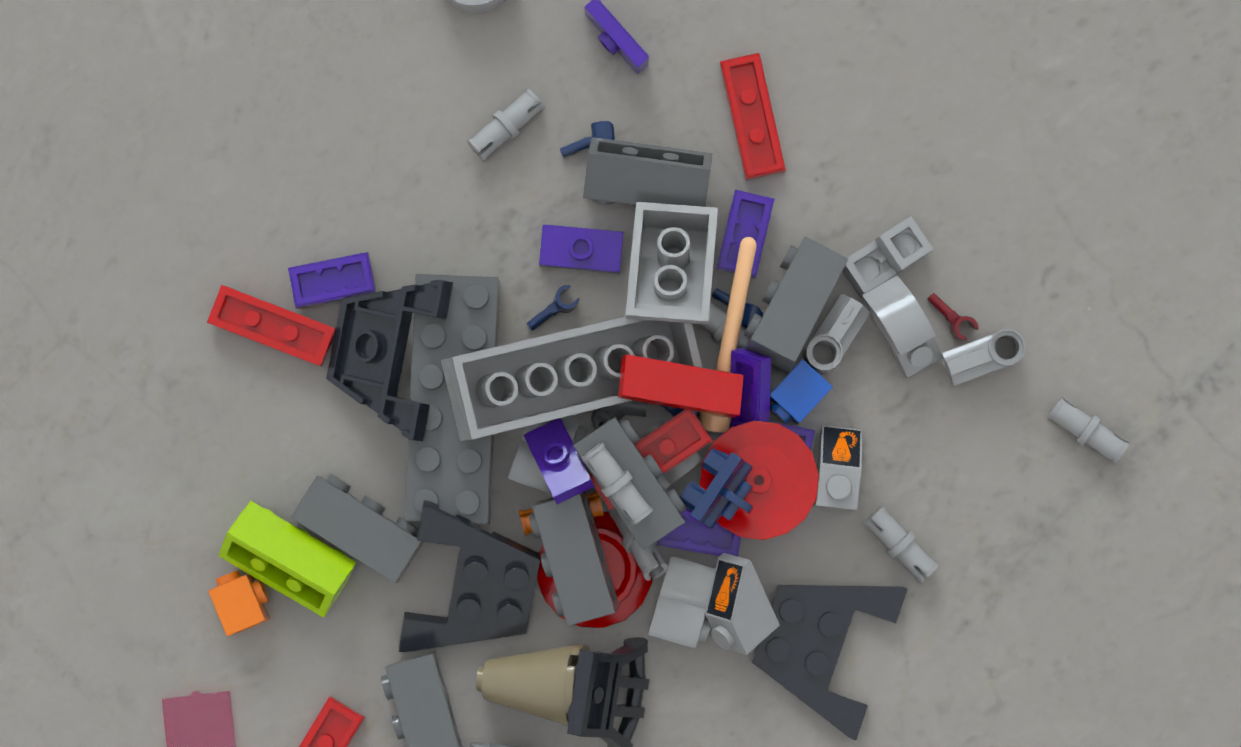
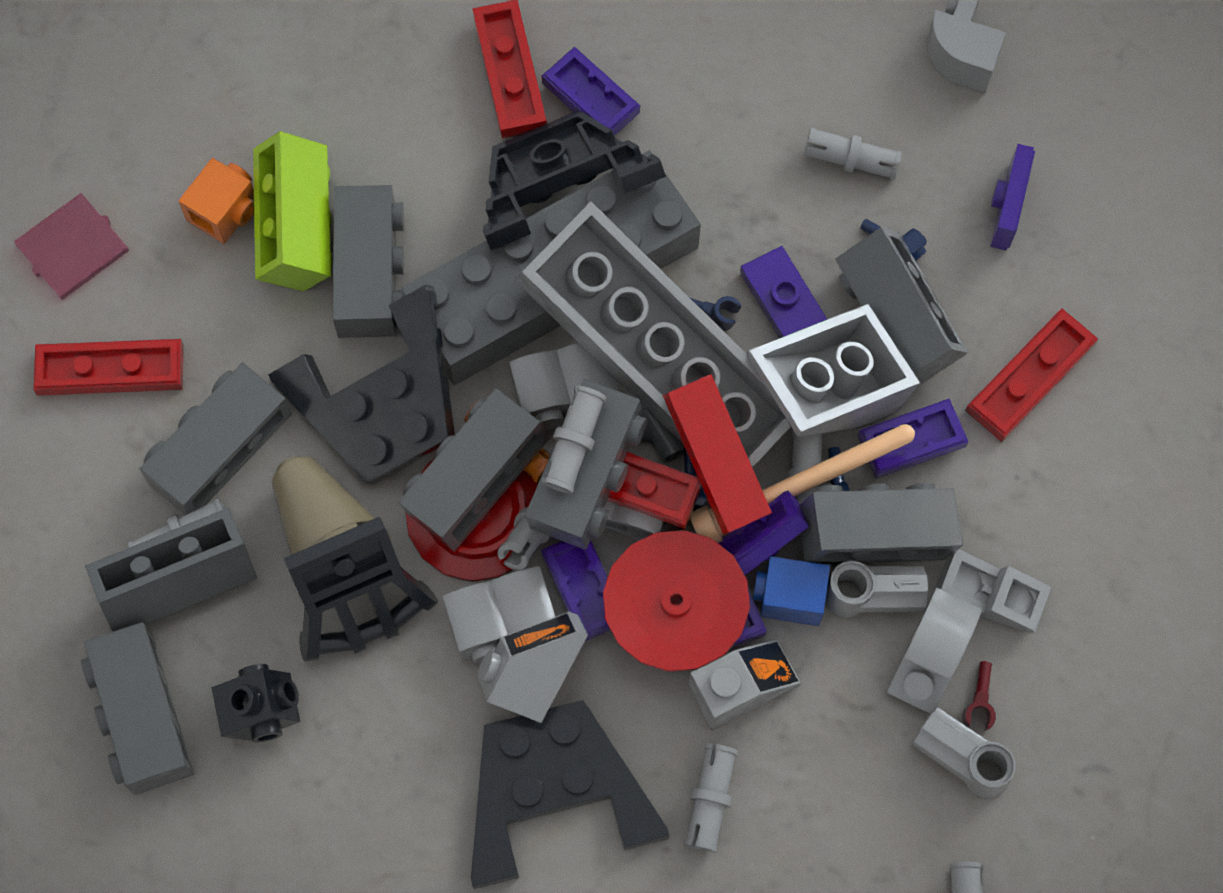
camera: 50 degrees right, 15 degrees down
(558, 460) = (553, 385): dark purple plate -> none
(724, 493) = (639, 563): dark blue hips -> none

